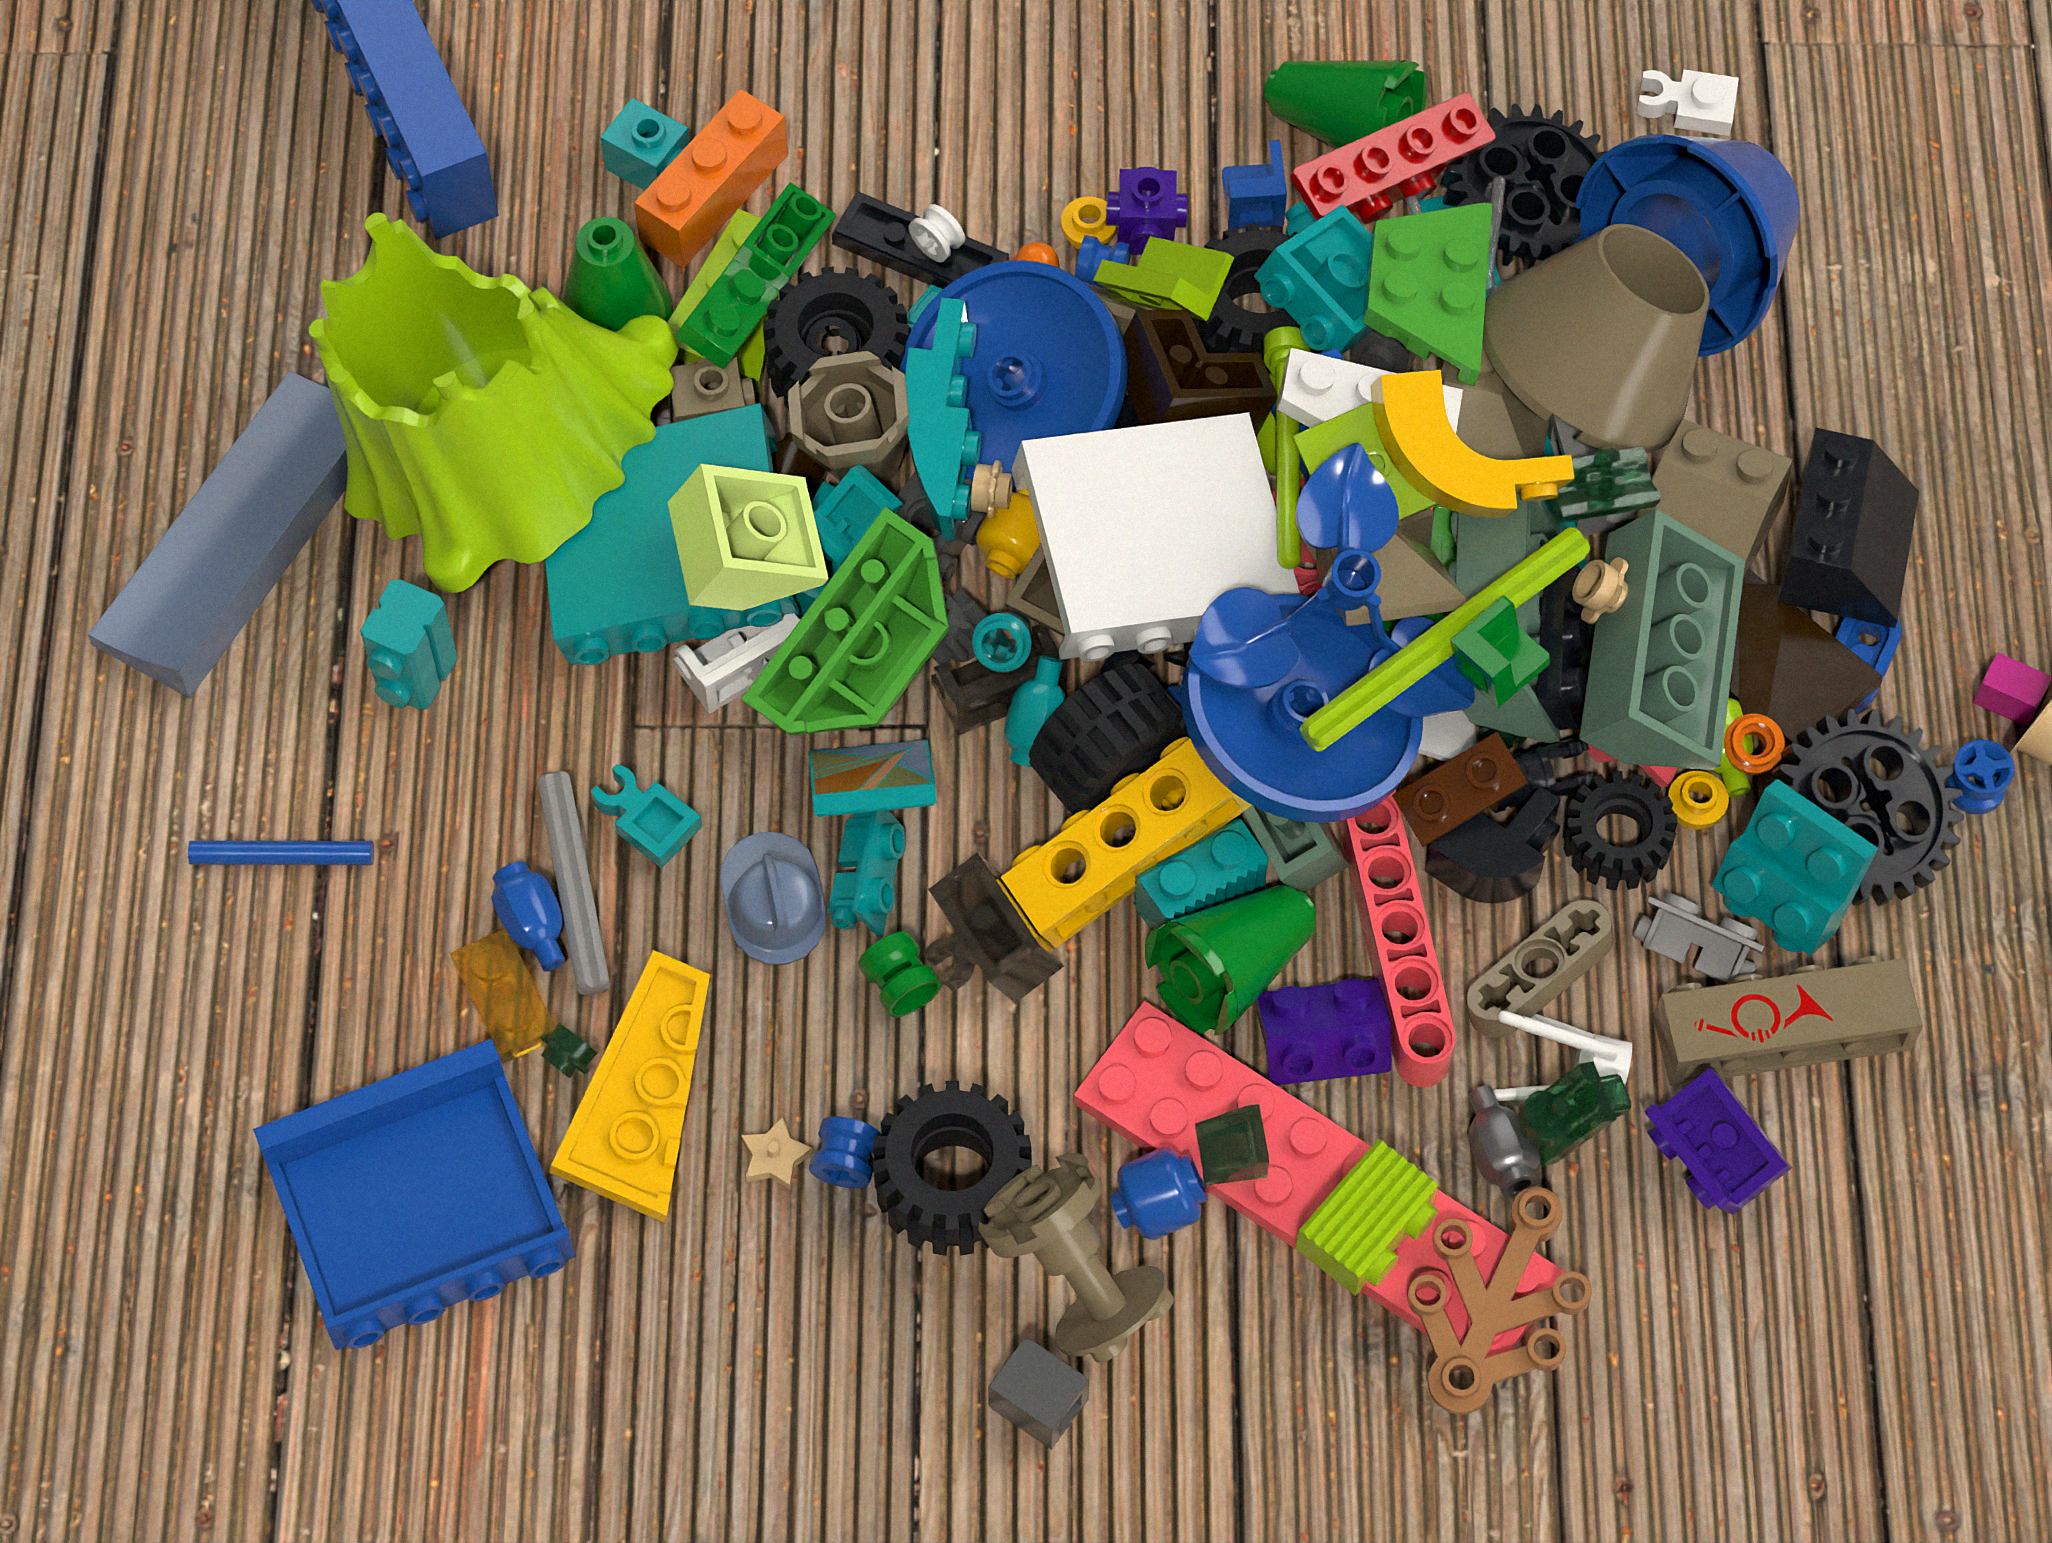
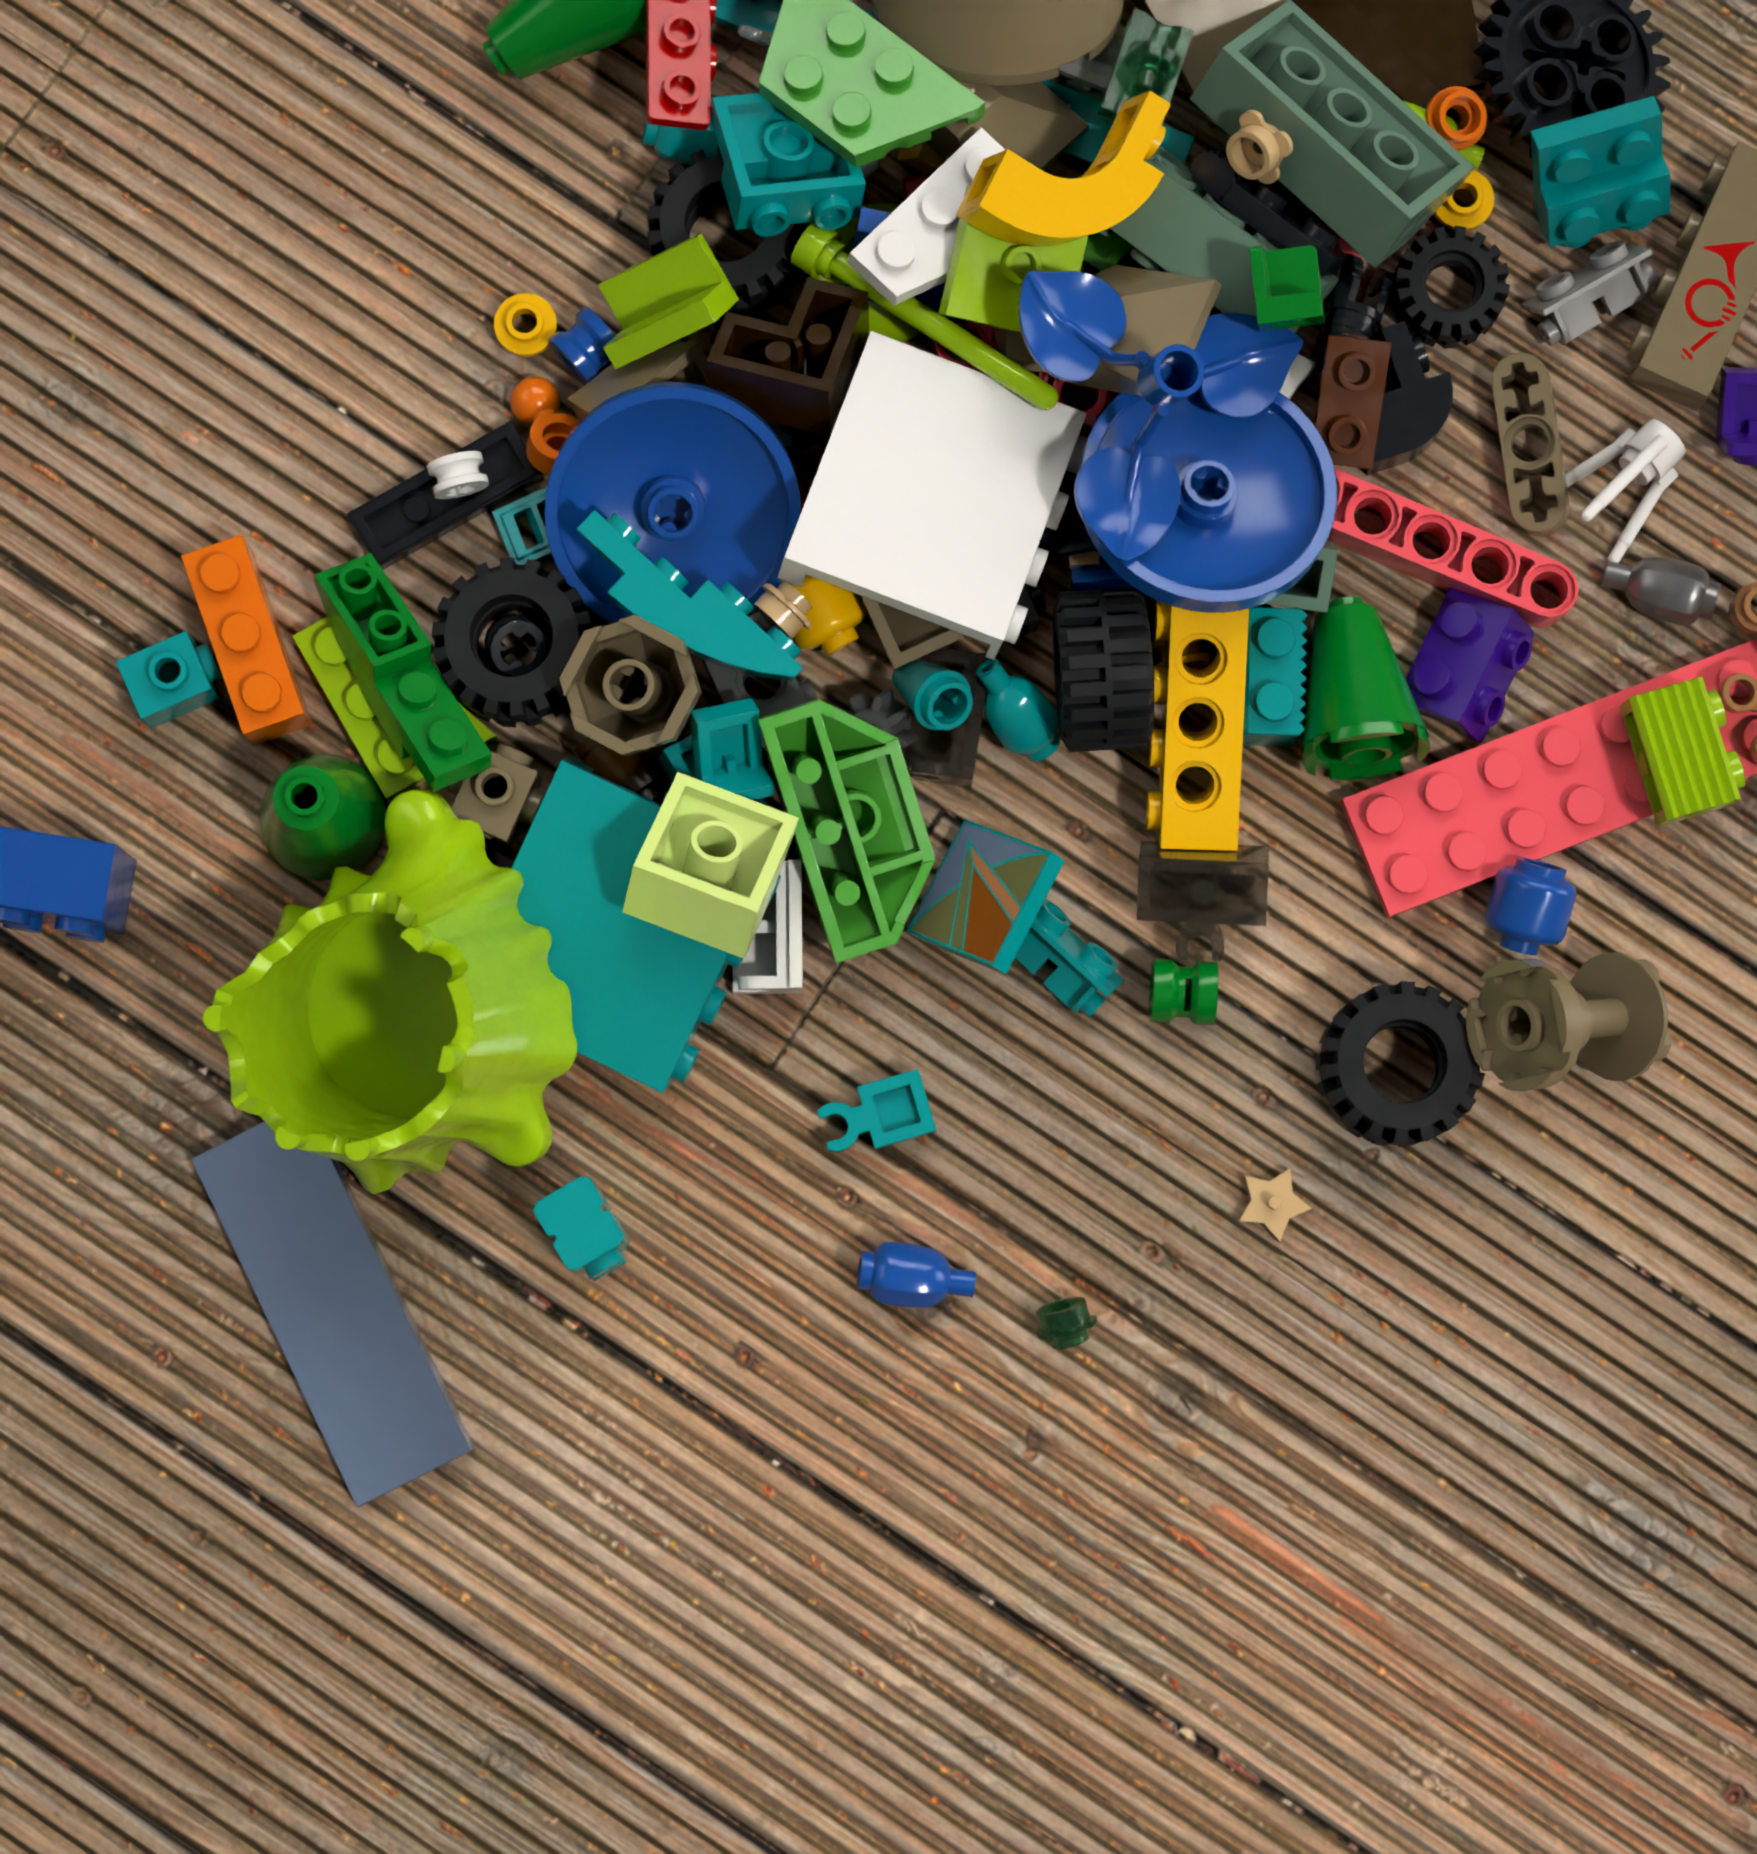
camera: 60 degrees left, 20 degrees up
(281, 852) = (697, 1458): blue bar -> none
(414, 1195) = (1122, 1537): blue panel -> none
(503, 994) = (970, 1344): clear yellow plate -> none
(573, 883) = (900, 1217): light grey axle -> none
(636, 1103) = (1155, 1297): yellow wing -> none
(773, 898) = (1024, 1050): sand blue piece -> none
(844, 1152) = (1320, 1145): blue wheel -> none
(1038, 1393) = (1645, 1121): dark grey panel -> none
(1146, 206) = (563, 285): dark purple brick -> none
(1233, 1146) = (1539, 818): clear green slope -> none
(1256, 191) = (593, 150): blue panel -> none
(1435, 646) = (1239, 323): lime axle -> none
(1572, 1111) = (1694, 515): clear green hips -> none

